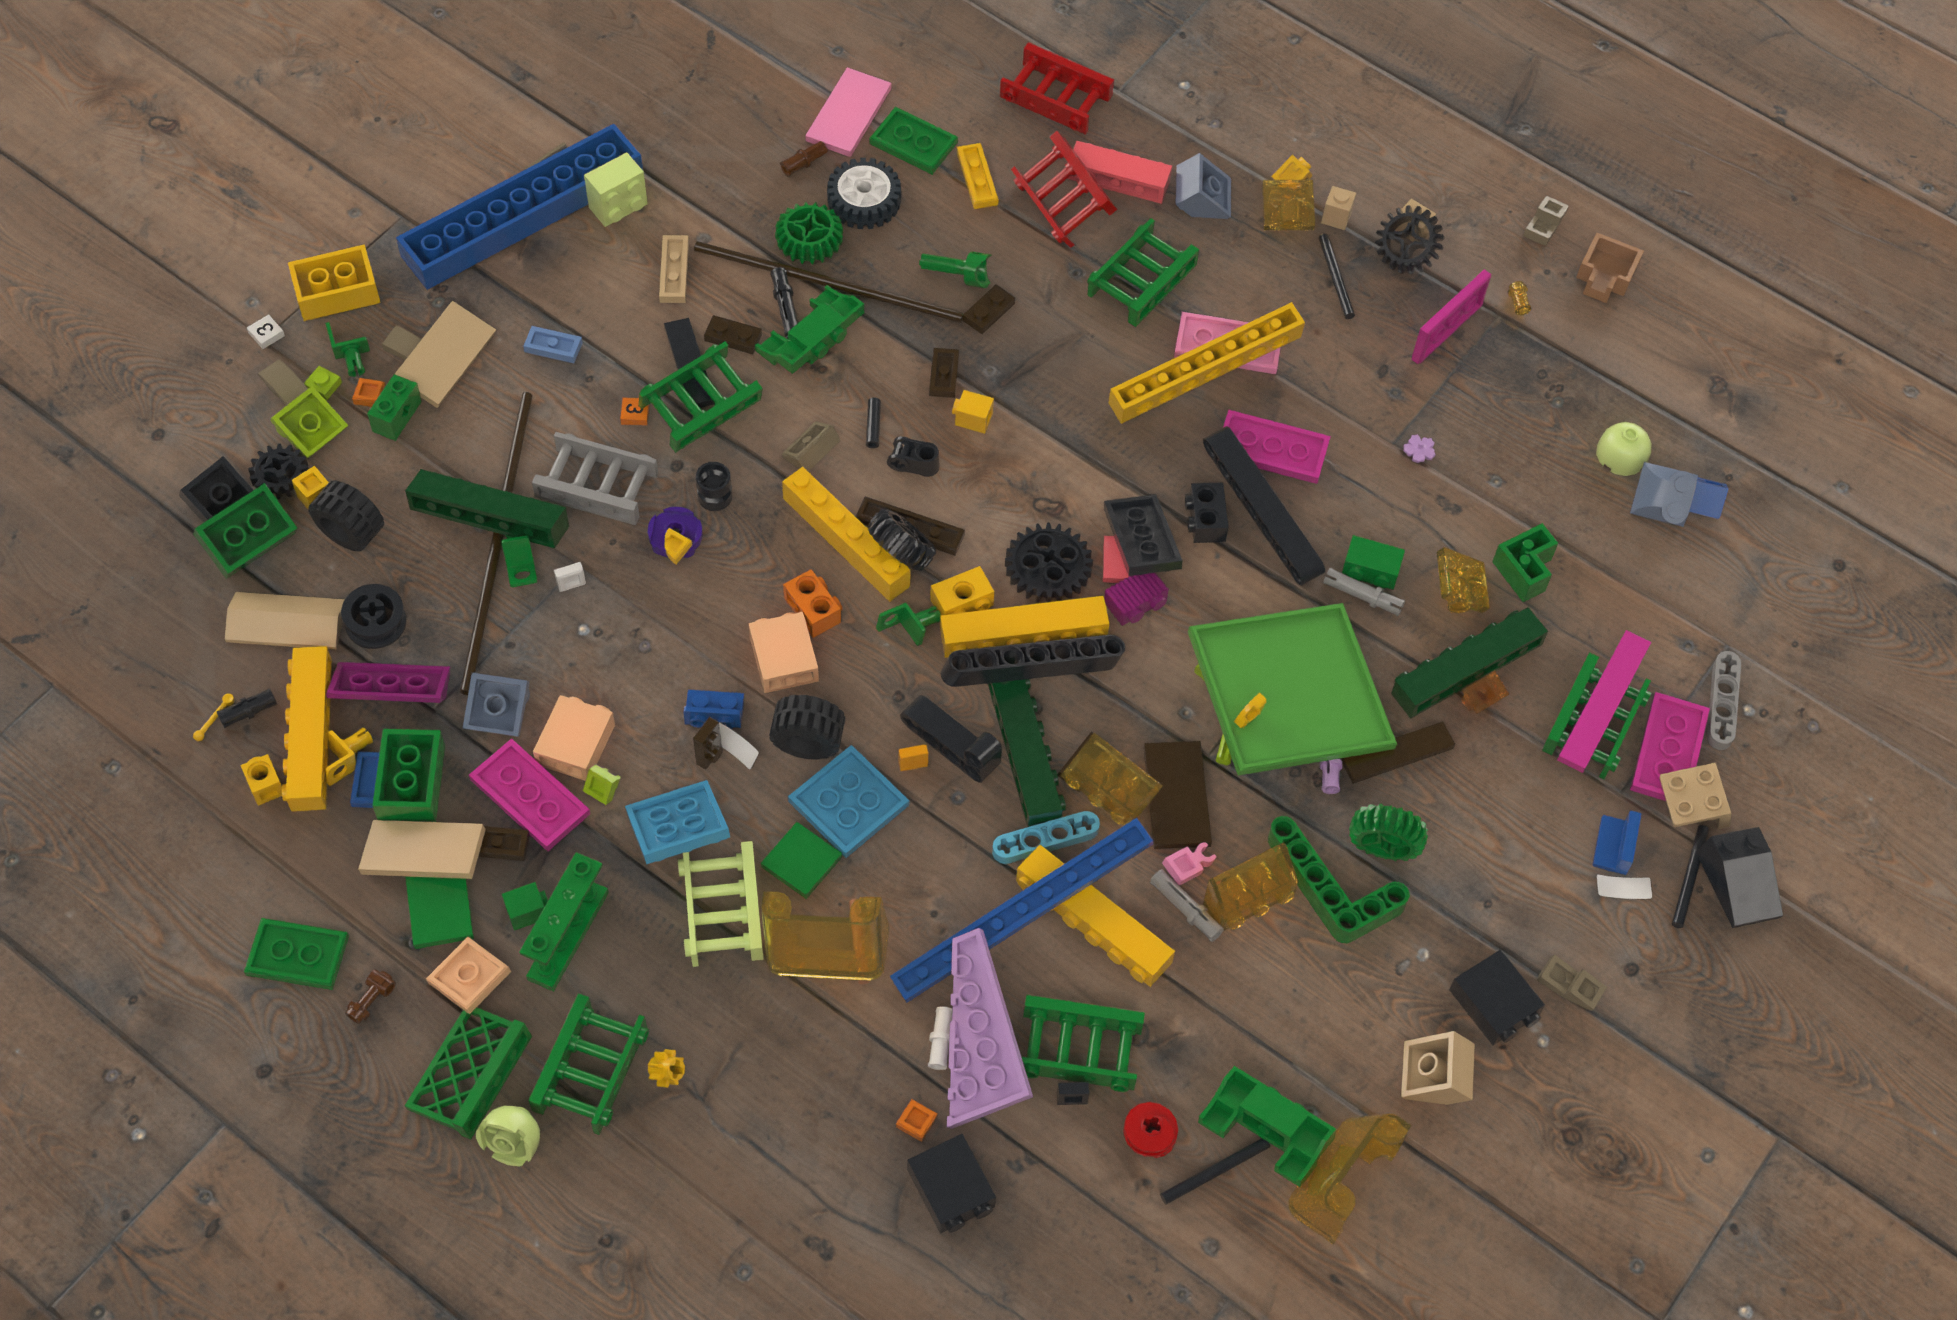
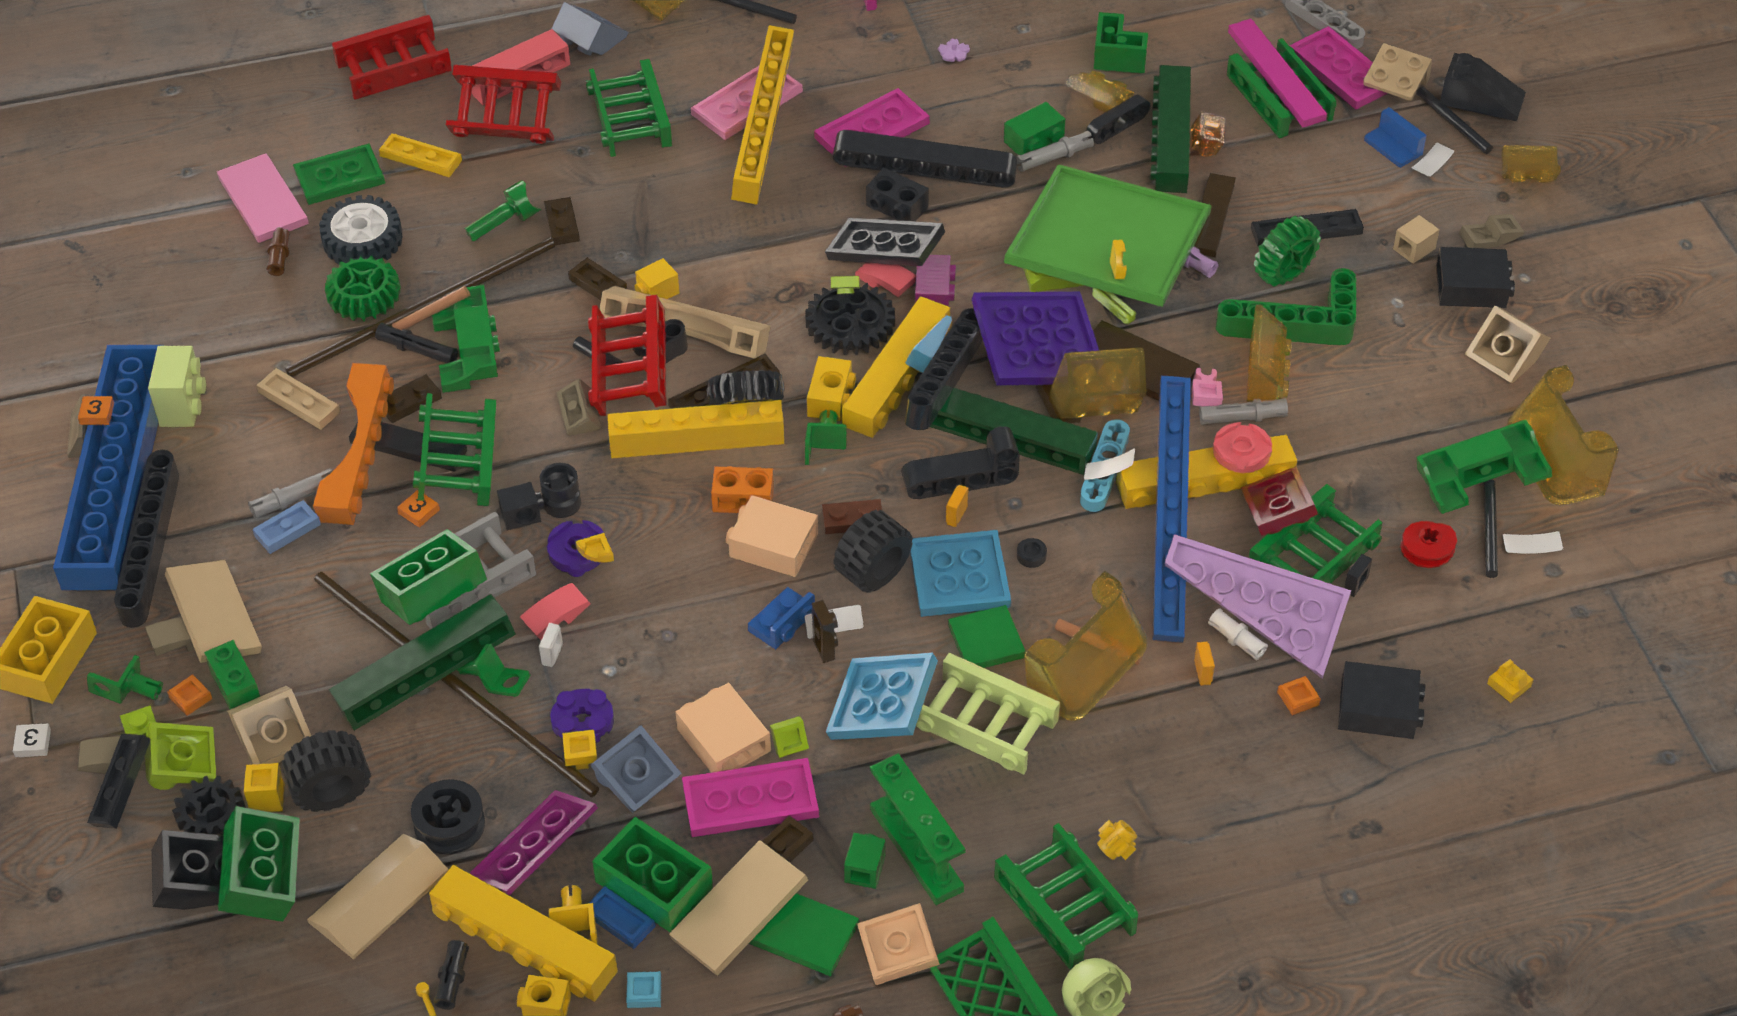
camera: 50 degrees left, 10 degrees down
(259, 403) = (119, 781): none -> black tile
(319, 835) = (643, 989): none -> medium azure tile
(371, 458) = (269, 725): none -> tan slope
(477, 271) = (146, 539): none -> black beam
(488, 656) = (579, 748): none -> yellow tile
(525, 626) = (582, 701): none -> dark purple plate
(546, 160) = (96, 410): none -> orange tile
(551, 459) = (428, 577): none -> green brick
(576, 323) = (283, 497): none -> light grey pin
(607, 354) = (340, 492): none -> orange arch
(609, 558) = (559, 605): none -> coral slope
(680, 470) = (520, 505): none -> black brick
(819, 288) = (432, 309): none -> nougat bar
(850, 693) = (842, 515): none -> copper plate
(885, 457) = (653, 363): none -> red fence
(889, 1030) = (1204, 663): none -> light orange tile
(913, 839) = (1031, 552): none -> black tile
(931, 414) = (720, 329): none -> tan arch
(1033, 839) = (1110, 466): none -> white sticker
(1049, 632) = (928, 346): none -> dark azure slope
(1055, 1276) = (1510, 681): none -> yellow tile
(1065, 535) = (845, 284): none -> lime plate
(1094, 986) = (1279, 501): none -> dark red plate
(1126, 701) = (1031, 333): none -> dark purple plate
(1129, 925) = (1242, 447): none -> coral tile
(1227, 1213) = (1533, 543): none -> white sticker
(1443, 615) = (1118, 118): none -> black beam
(1451, 835) = (1329, 224): none -> black tile
(1504, 926) = (1416, 239): none -> tan brick
(1686, 967) = (1530, 163): none -> clear yellow bracket

